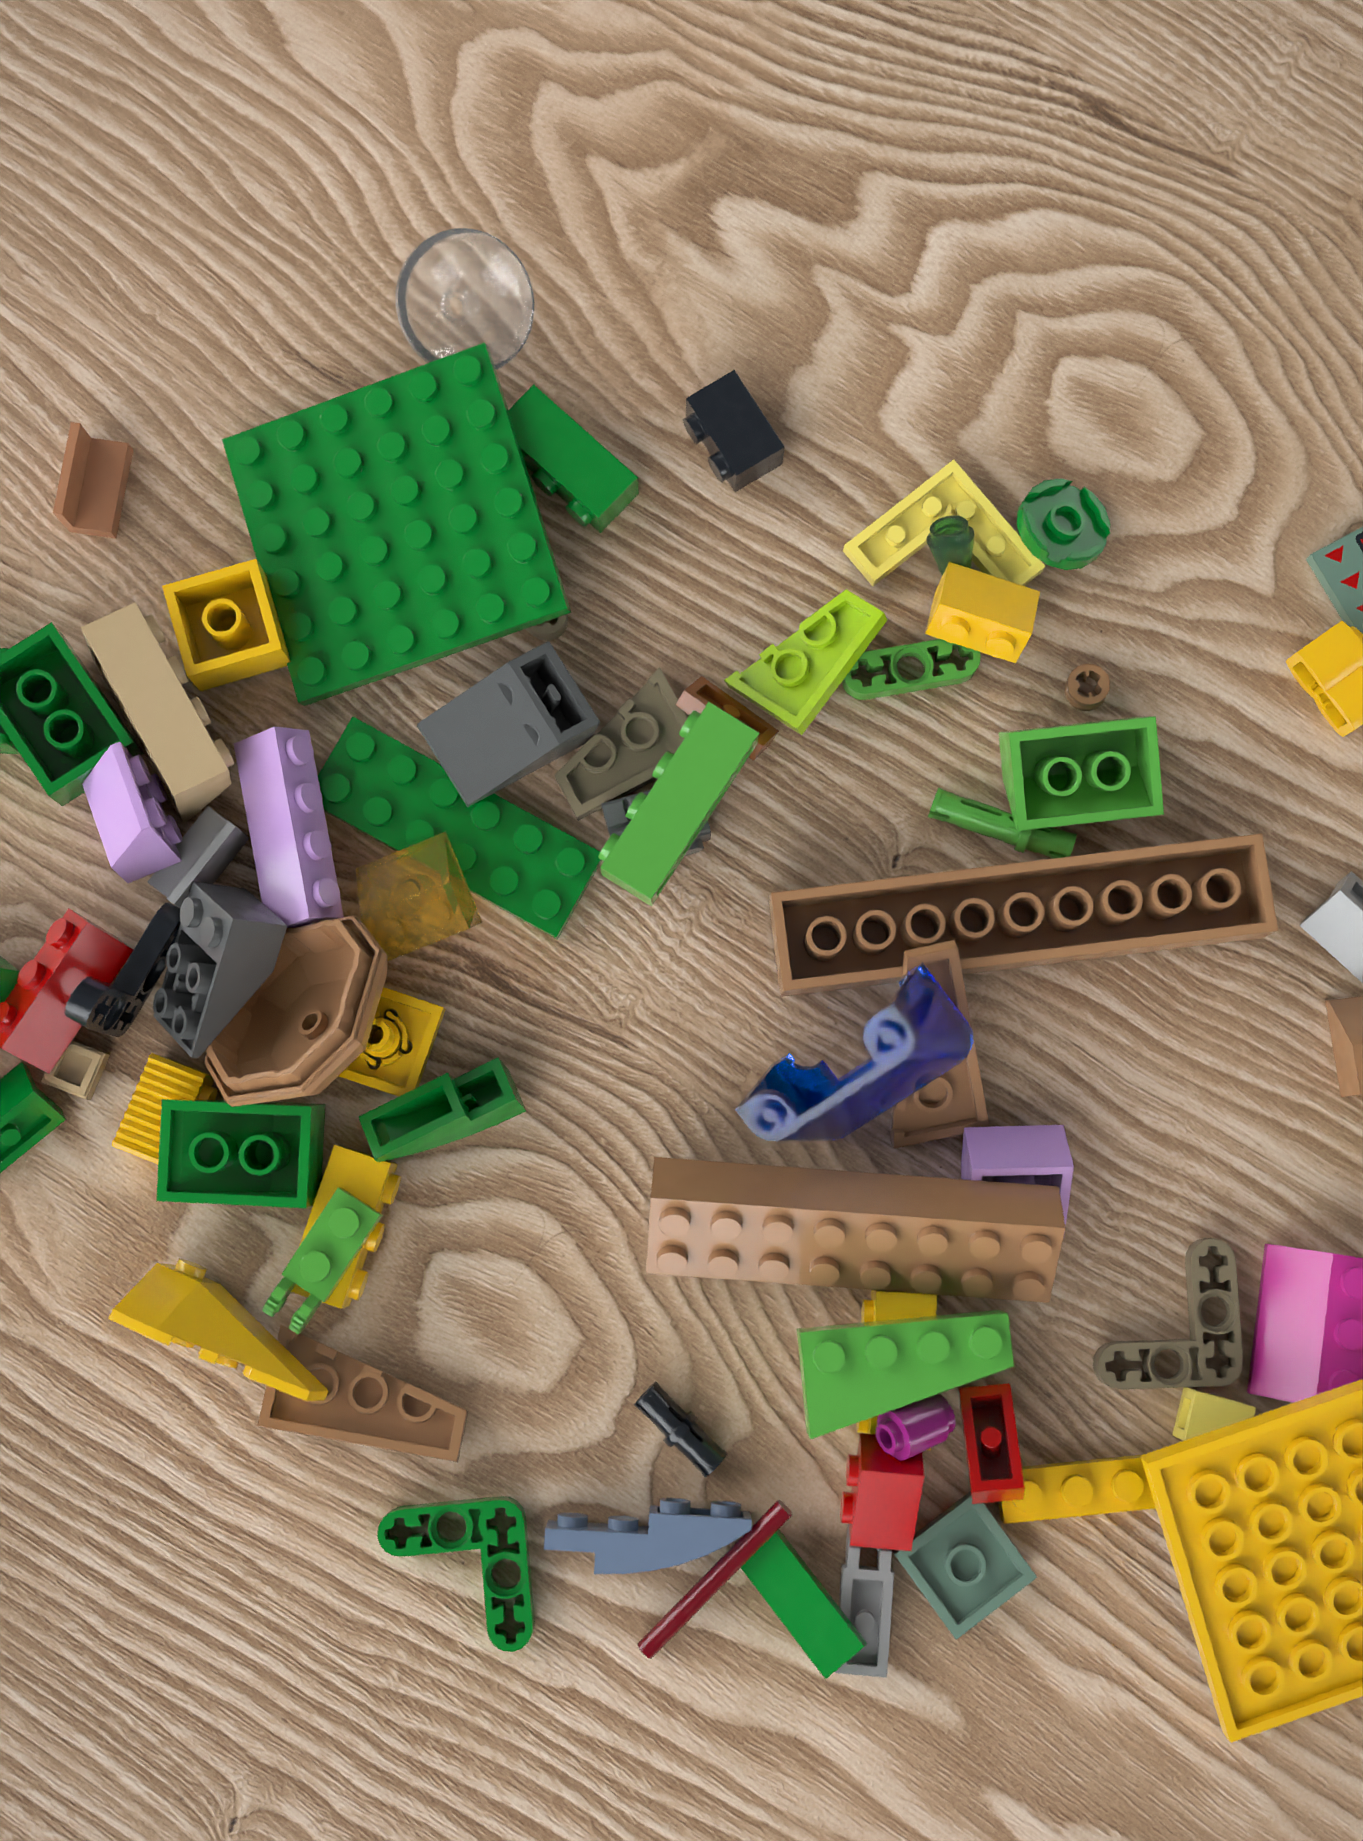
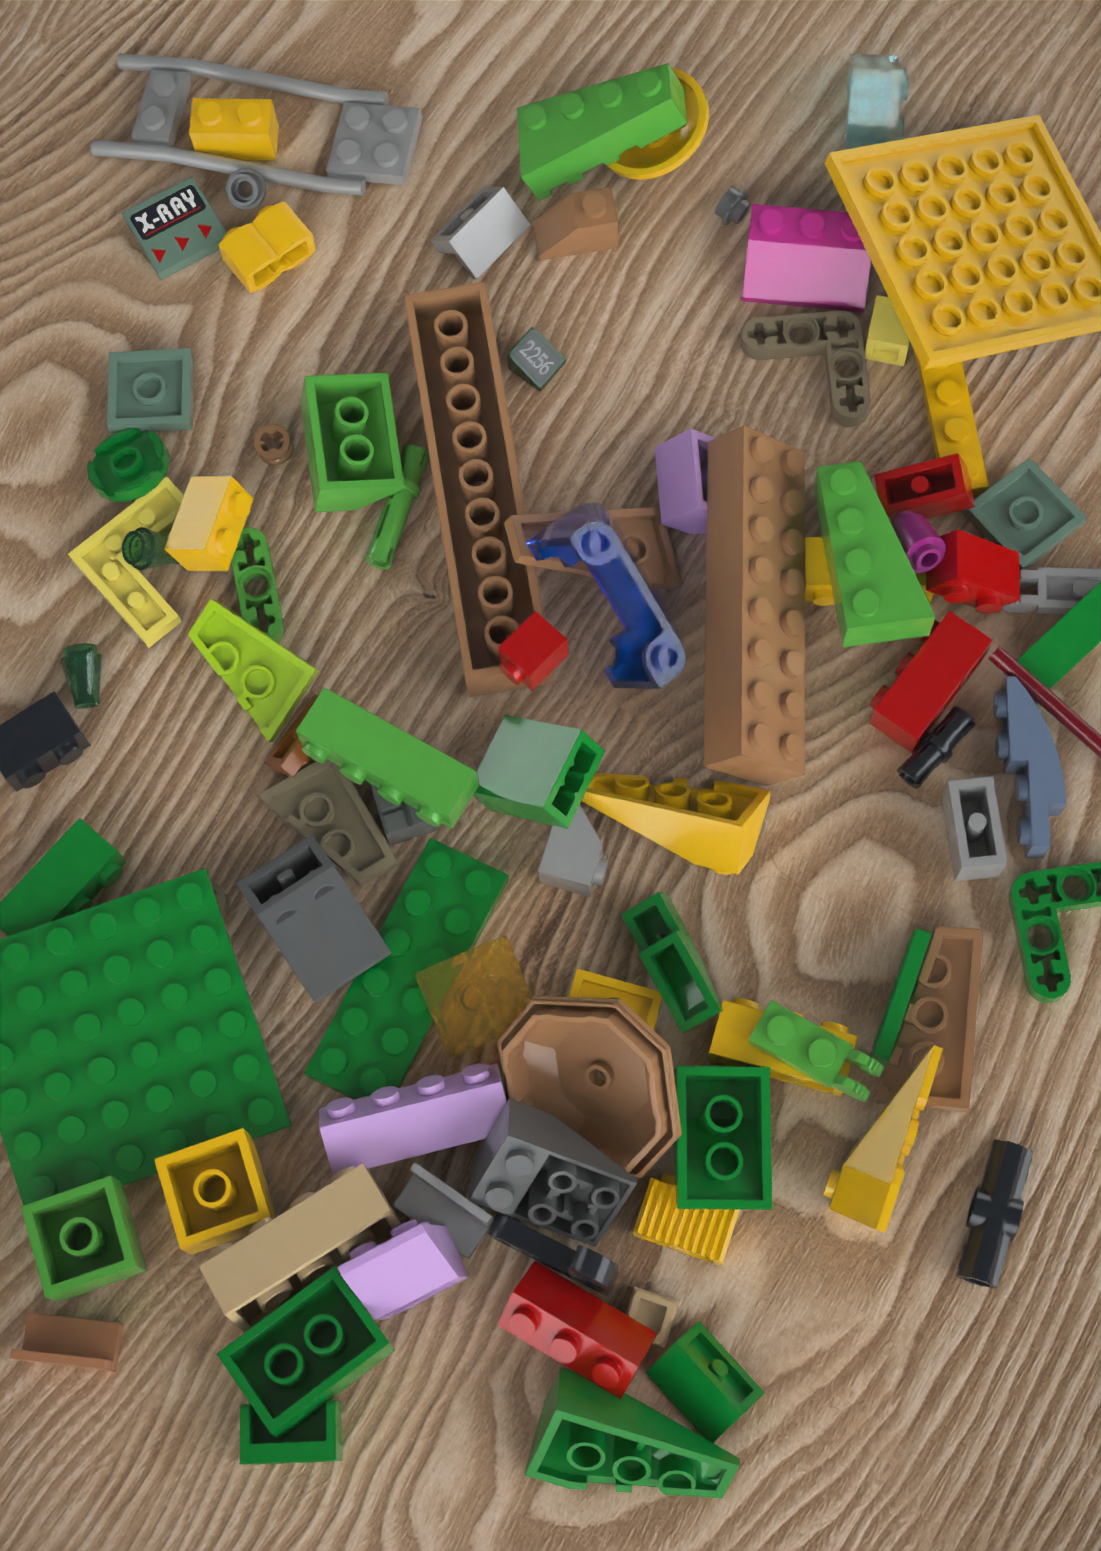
camera: 85 degrees left, 10 degrees down
(147, 1444) = (994, 1214): none -> black piece
(188, 493) = (84, 1239): none -> bright green brick
(388, 1360) = (900, 996): none -> green tile
(571, 1463) = (974, 828): none -> light grey brick
(578, 1009) = (573, 857): none -> light grey slope
(606, 1144) = (699, 824): none -> yellow wedge
(662, 970) = (537, 770): none -> brick
(758, 1428) = (929, 680): none -> red brick
(791, 966) = (532, 651): none -> red brick
(813, 480) = (83, 674): none -> clear green cone
(1157, 547) = (150, 390): none -> sand green plate
(1187, 990) = (535, 359): none -> slope

